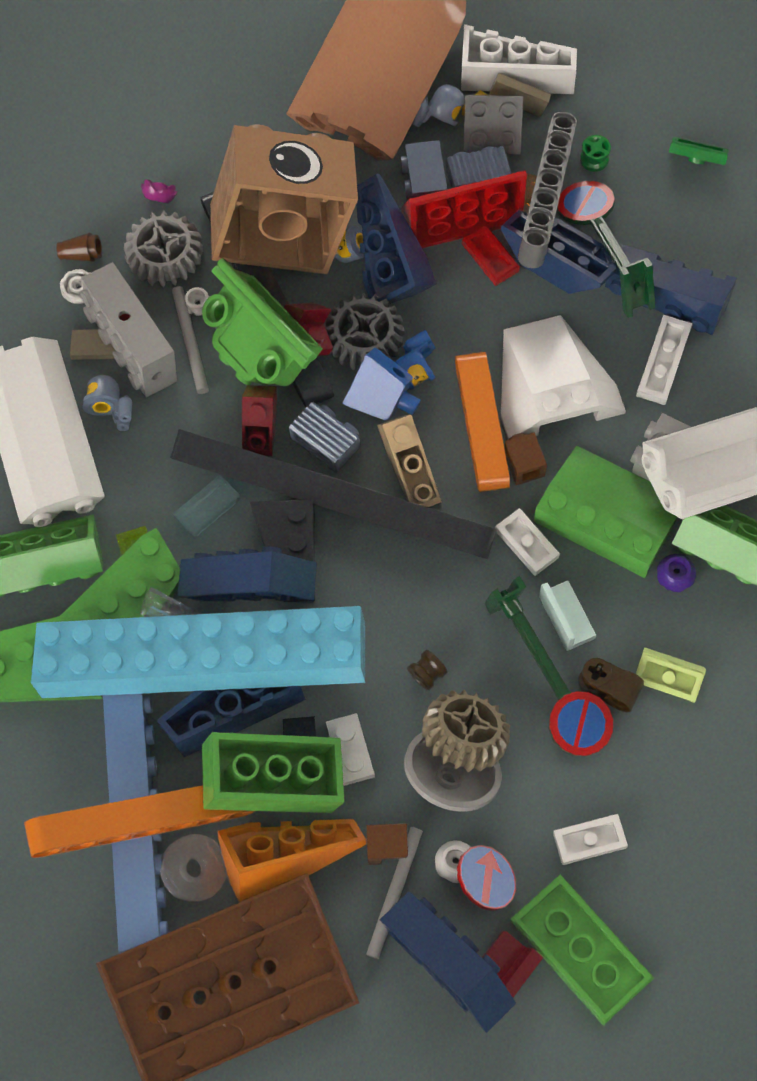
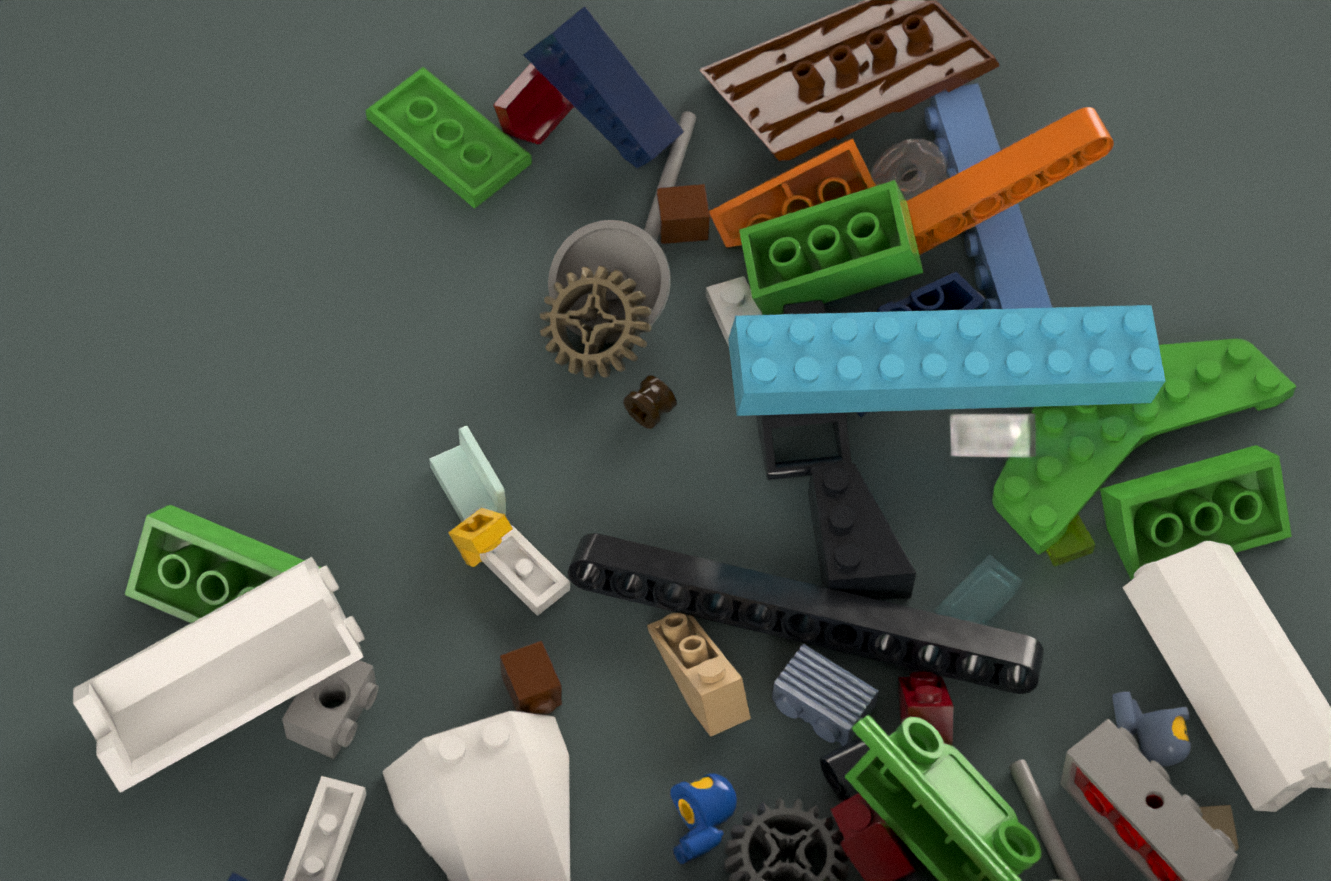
camera: 170 degrees right, 10 degrees down
(247, 576) = (901, 459): dark blue wedge -> none
(381, 388) = (749, 755): torso -> none
(444, 857) = (597, 197): white plate -> none
(482, 422) = (597, 736): orange beam -> none
(486, 878) = (561, 184): piece -> none
(559, 559) = (479, 534): none -> yellow bracket
(578, 720) = (457, 361): piece -> none
(590, 839) = (438, 234): white plate -> none
(606, 511) = (421, 616): bright green slope -> none
(613, 686) = (408, 399): dark brown piece -> none
(670, 674) = (331, 427): yellowish green slope -> none
(673, 581) = (321, 533): dark purple plate -> none

